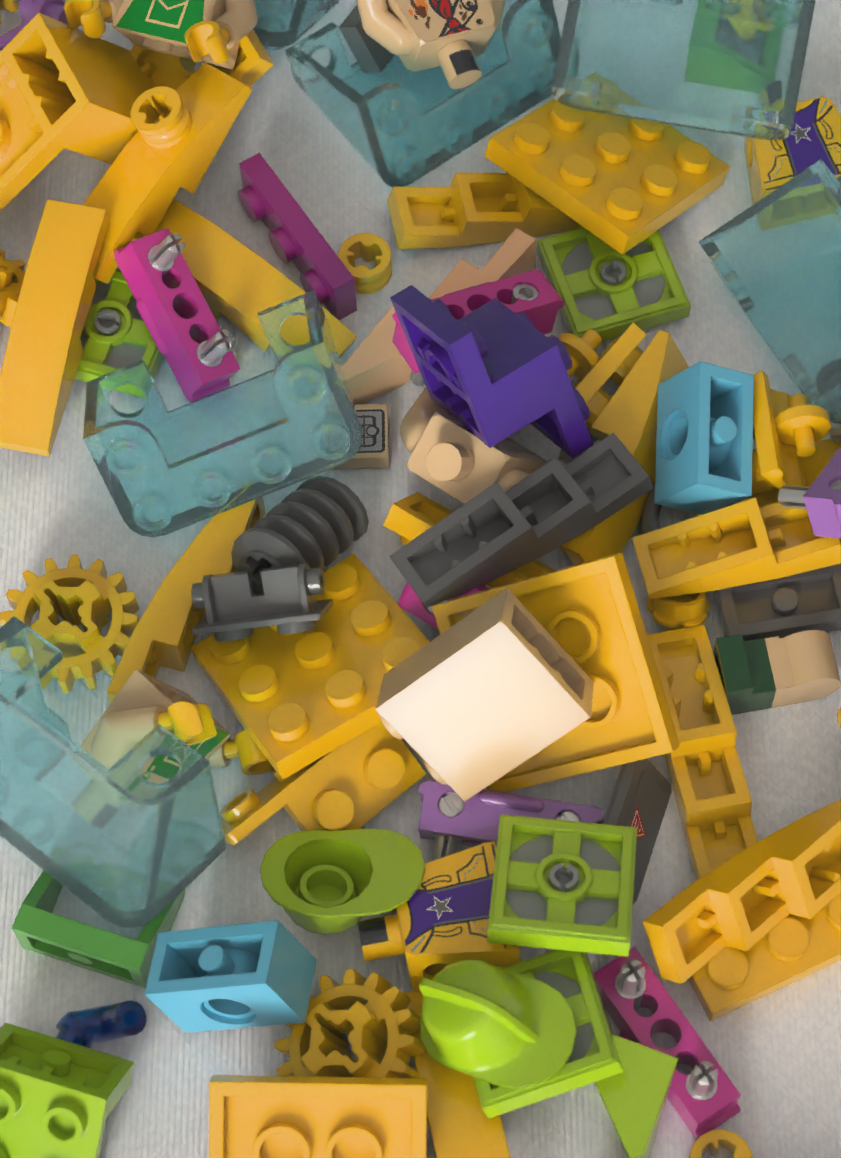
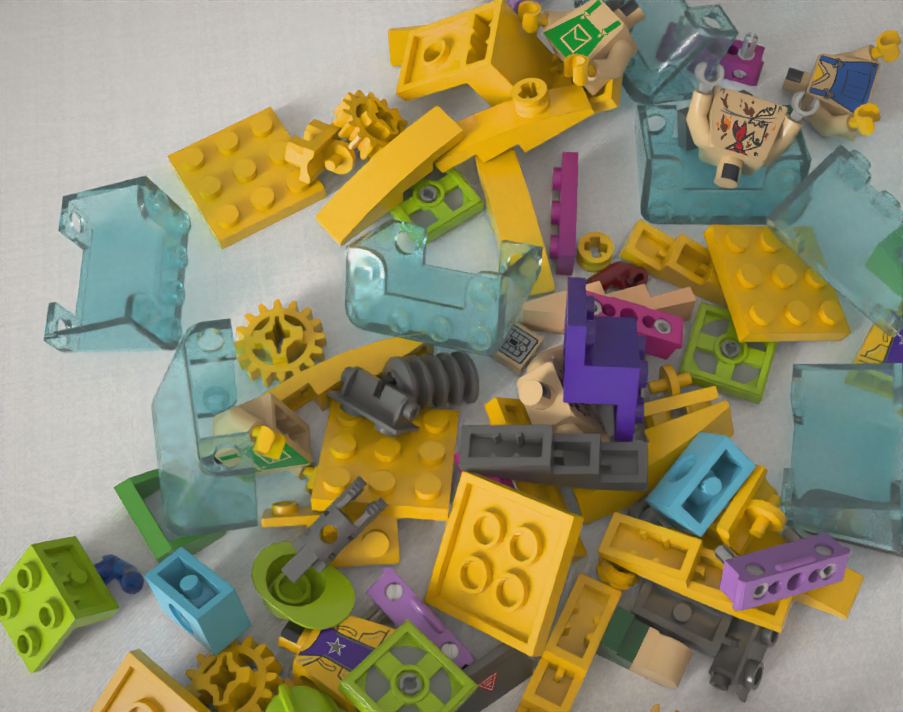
camera: 35 degrees right, 0 degrees up
(191, 341) = (460, 251): dark pink piece -> none
(320, 812) = (319, 552): none -> dark grey hinge
(420, 269) = (620, 276): none -> dark red arm
(485, 696) = (448, 545): brick -> none

